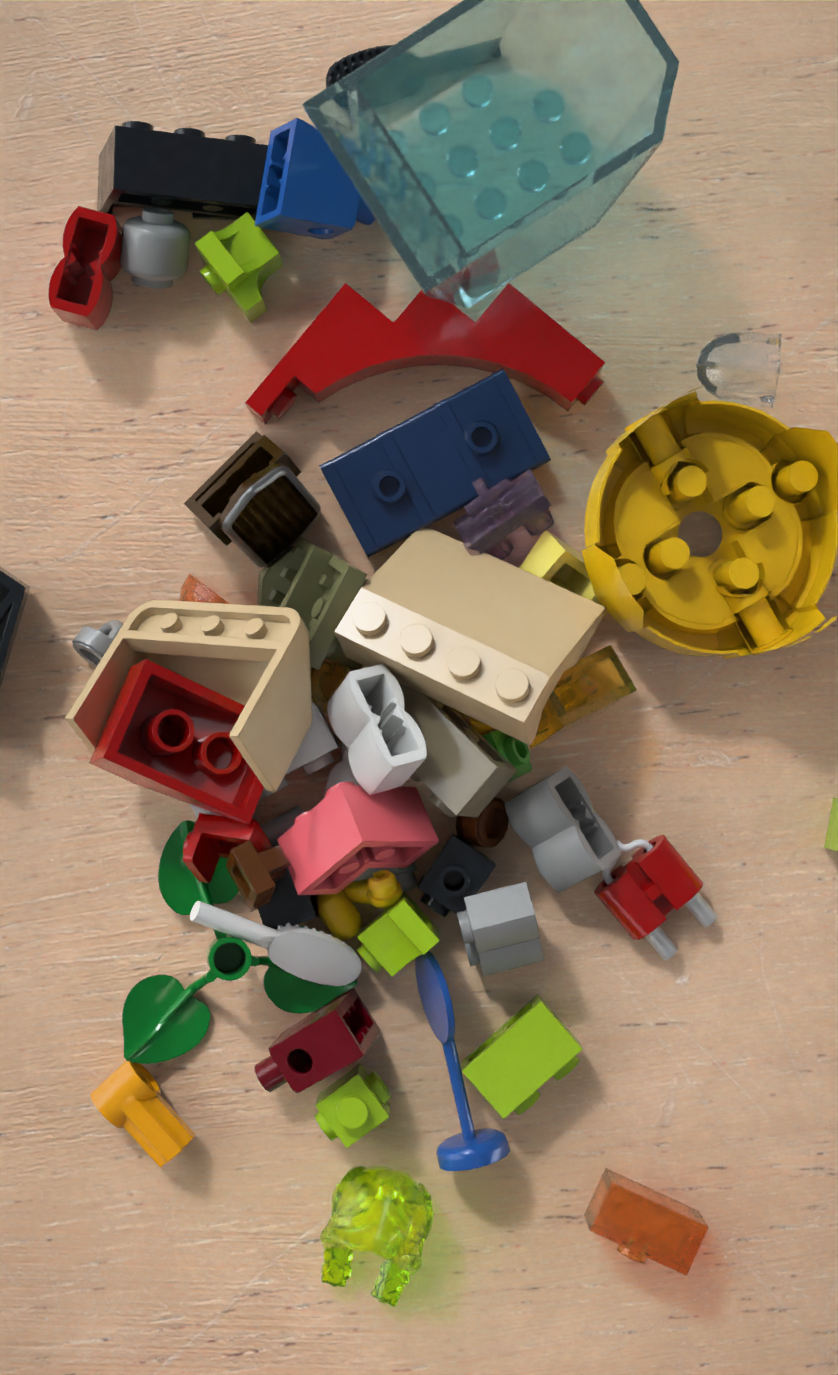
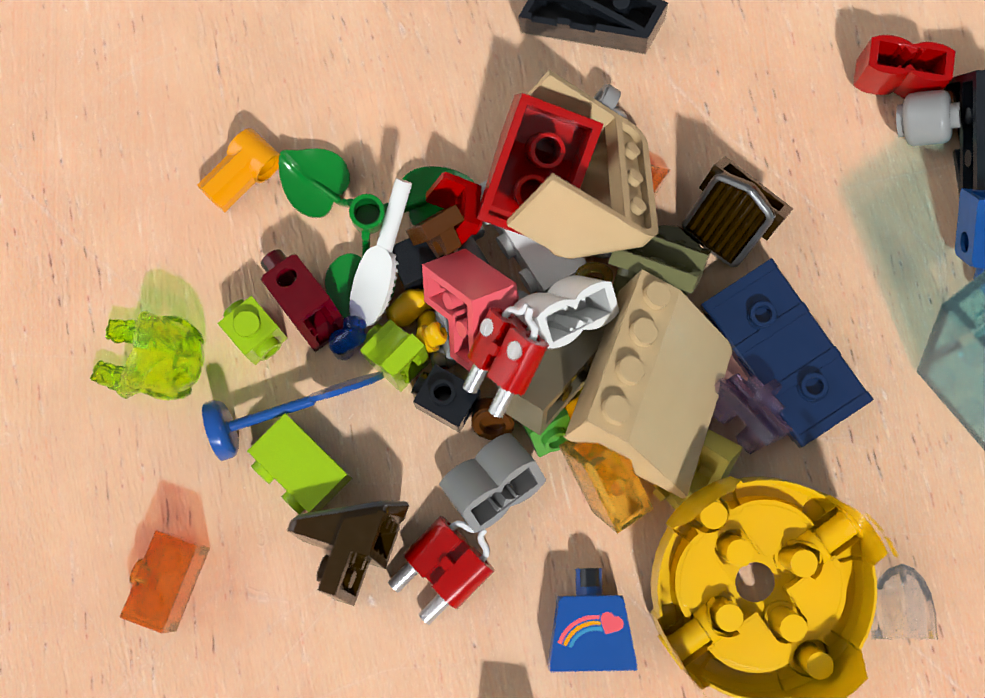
camera: 85 degrees right, 10 degrees down
(239, 263) = (926, 184): lime brick -> none
(358, 342) = (875, 282): red arch -> none
(375, 987) = (345, 340): none -> clear blue arm
(426, 804) = (507, 353): none -> red piece
(501, 929) = (405, 435): light grey brick -> none
(619, 994) = (355, 537): none -> dark brown piece
(739, 730) = (591, 629): none -> blue torso

